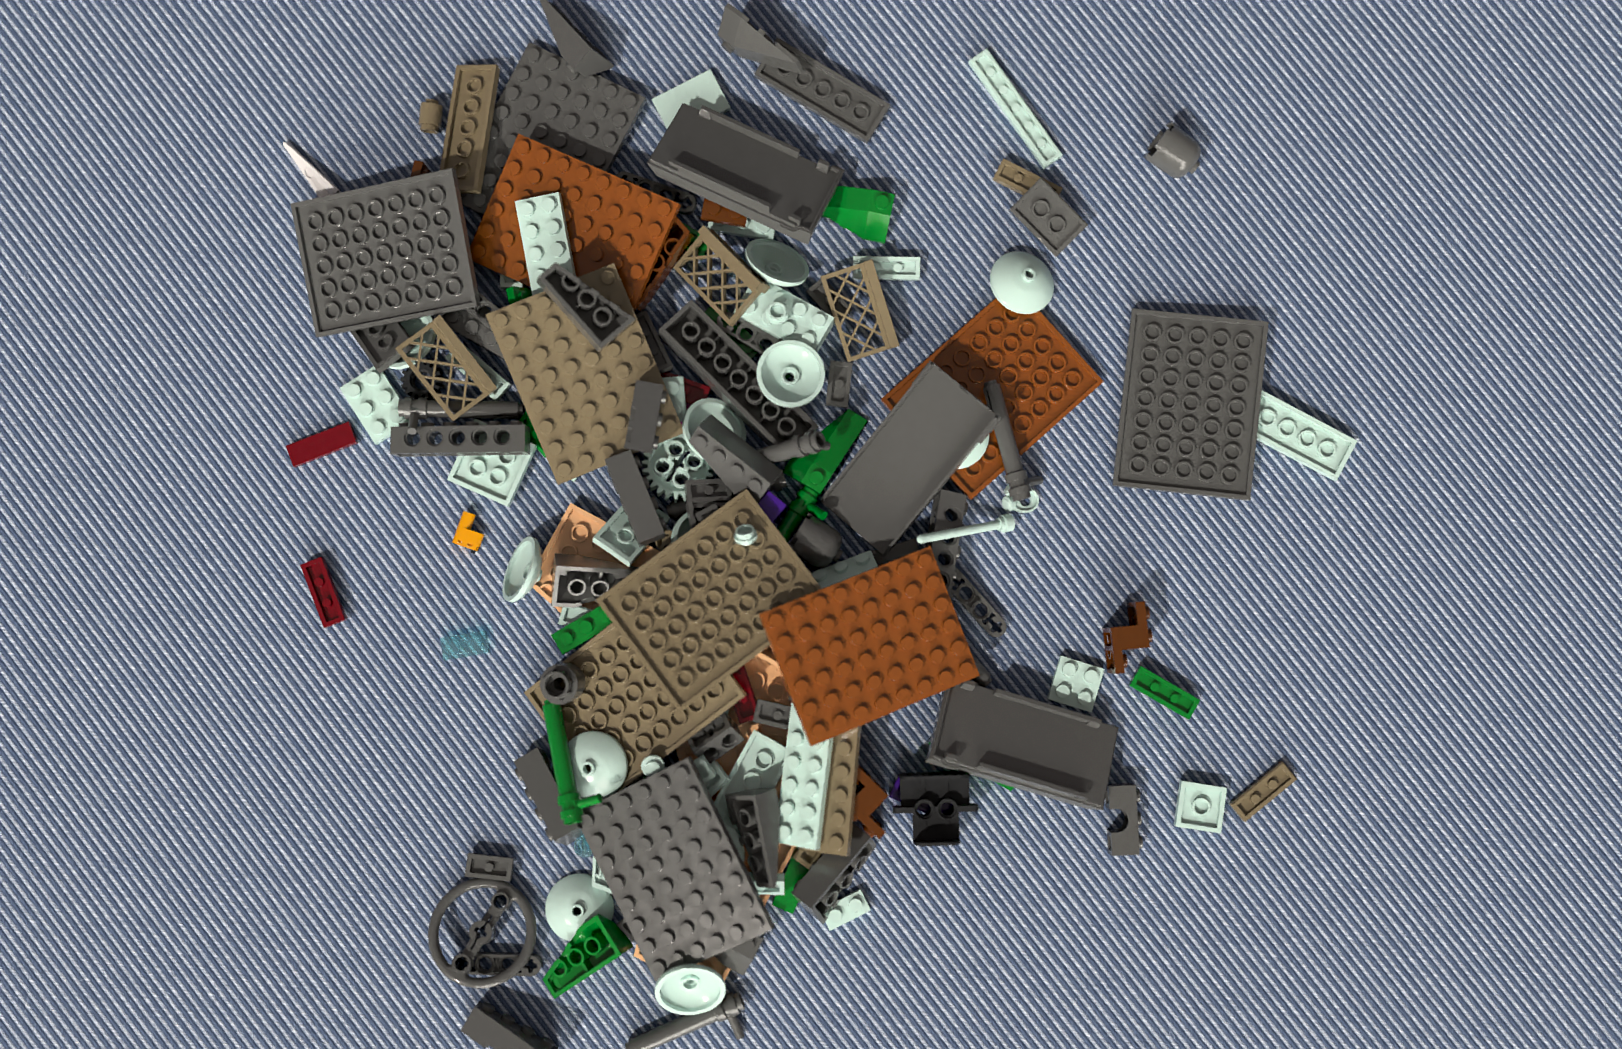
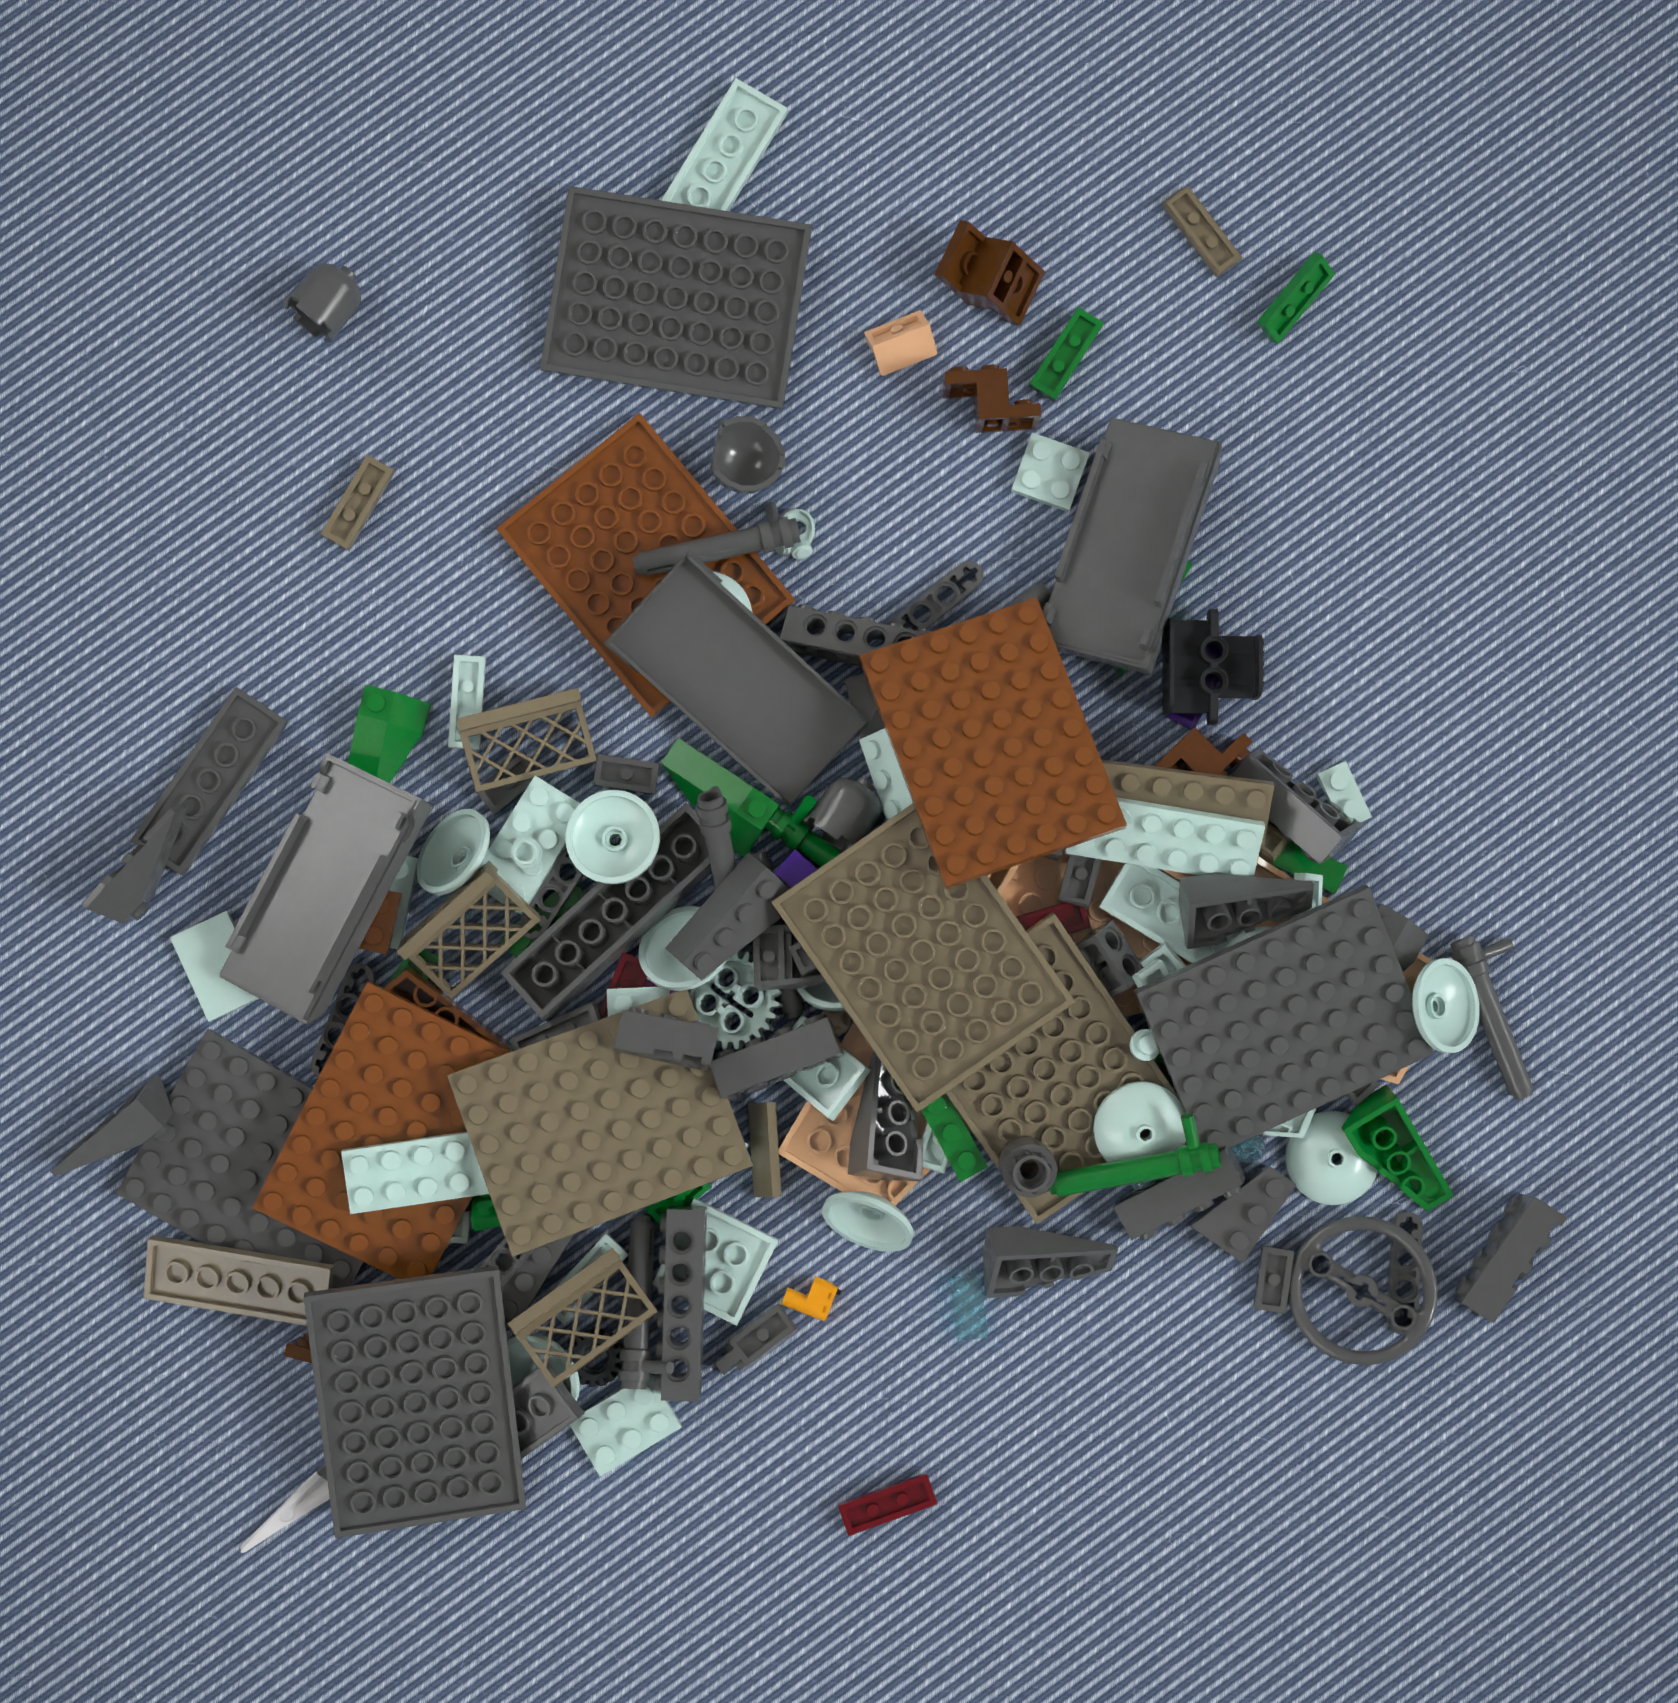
camera: 90 degrees left, 0 degrees up
(322, 444) = (678, 1503): dark red tile -> none
(430, 116) = (216, 1337): dark tan brick -> none
(437, 495) = (757, 1340): none -> dark grey hinge
(501, 686) = (1031, 1257): none -> dark grey wedge
(529, 841) = (1241, 1219): none -> dark grey wedge
(572, 494) = (764, 1149): none -> dark tan tile
(588, 310) = (511, 1114): dark grey wedge -> none
(745, 534) = (835, 903): light aqua plate -> none
(1003, 523) = (828, 558): light aqua piece -> none
(1015, 108) = (249, 515): light aqua tile -> none
(1017, 290) = (505, 526): light aqua dish -> none
(1048, 217) = (406, 476): dark grey tile -> none
(1075, 460) = (746, 455): none -> dark grey cylinder
(1126, 838) = (1259, 414): dark grey arch -> none
(1166, 570) = (901, 342): none -> light nougat panel
(1200, 806) = (1220, 315): light aqua plate -> none
(1216, 863) = (1295, 297): none -> green plate
(1221, 633) = (989, 273): none -> reddish brown bracket

